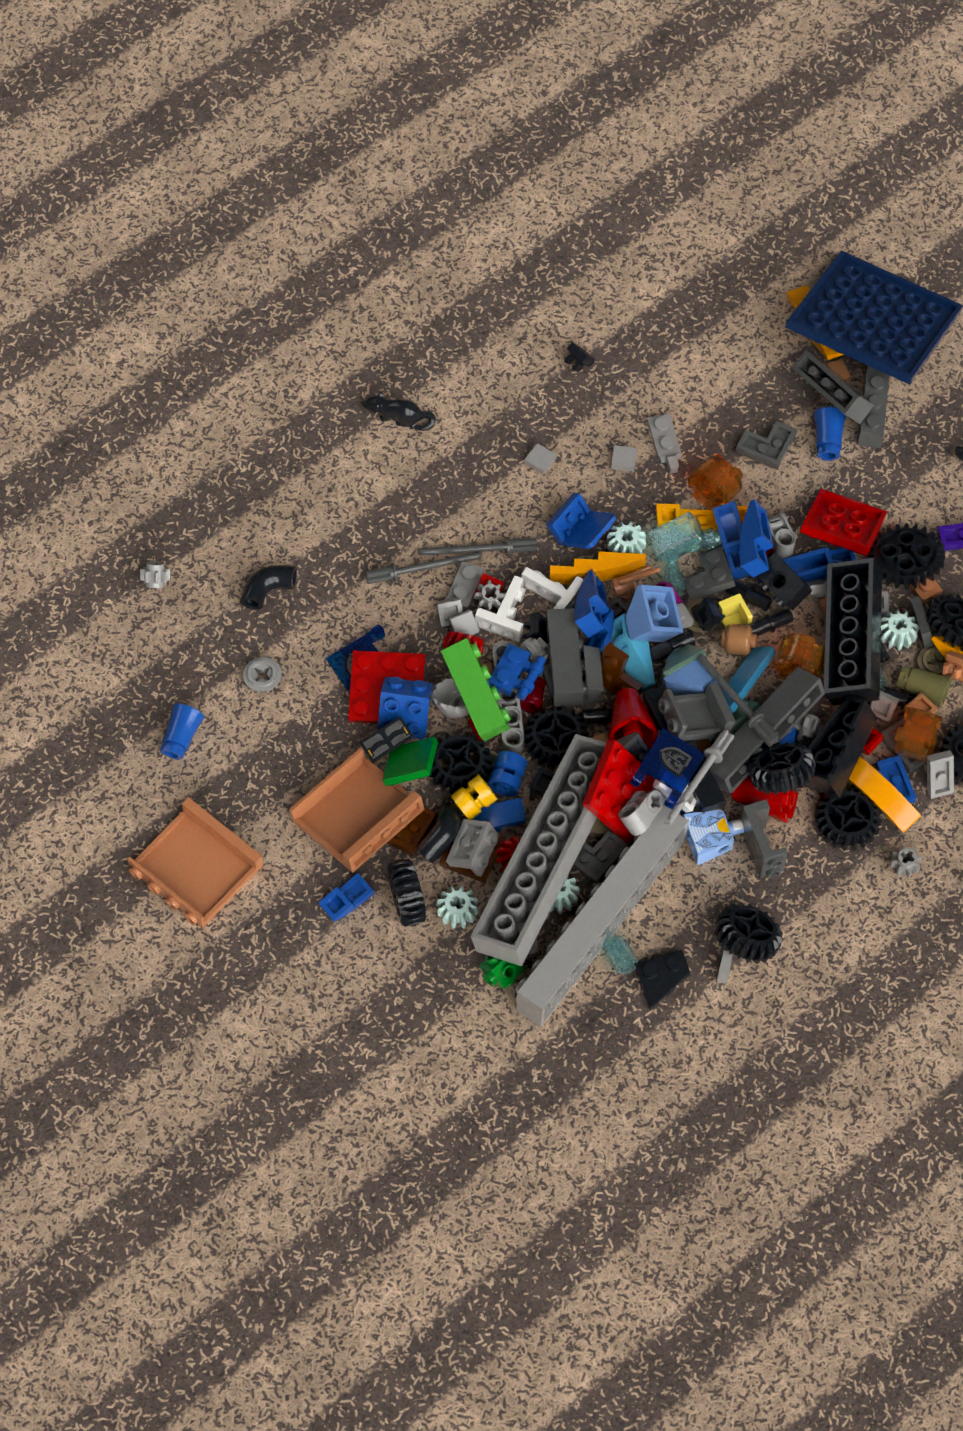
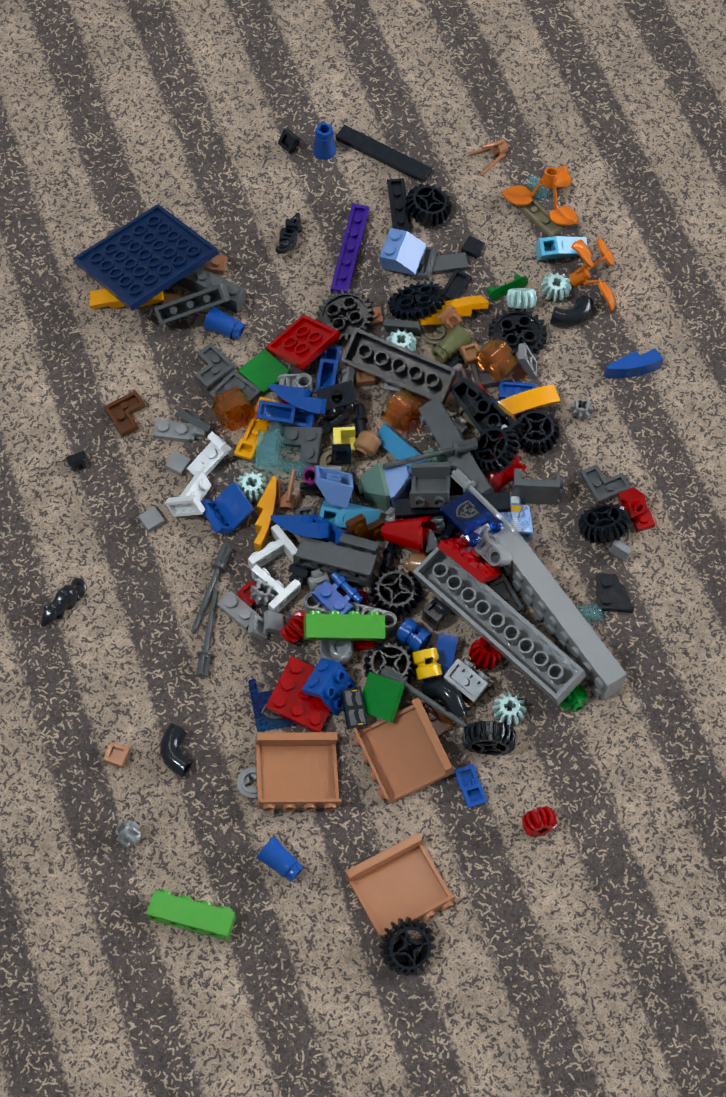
camera: 70 degrees left, 0 degrees up
(86, 669) = (191, 915): none -> bright green brick
(111, 888) = (392, 949): none -> black gear
(240, 531) = (116, 754): none -> nougat plate
(289, 712) = (296, 771): none -> nougat panel
(326, 980) = (539, 821): none -> red gear
(436, 776) = (390, 673): none -> dark grey piece
(586, 483) = (189, 501): none -> white bracket
(651, 485) = (211, 455): none -> white bracket
(663, 374) = (121, 411): none -> reddish brown plate
(686, 453) = (196, 420): none -> dark grey tile
(754, 478) = (235, 379): none -> dark grey plate
(782, 982) = (643, 521): none -> red plate
(789, 497) = (263, 371): none -> green tile
(796, 958) = (633, 502): none -> red brick
(804, 923) = (602, 488): none -> dark grey plate
(913, 398) = (217, 264): none -> nougat plate

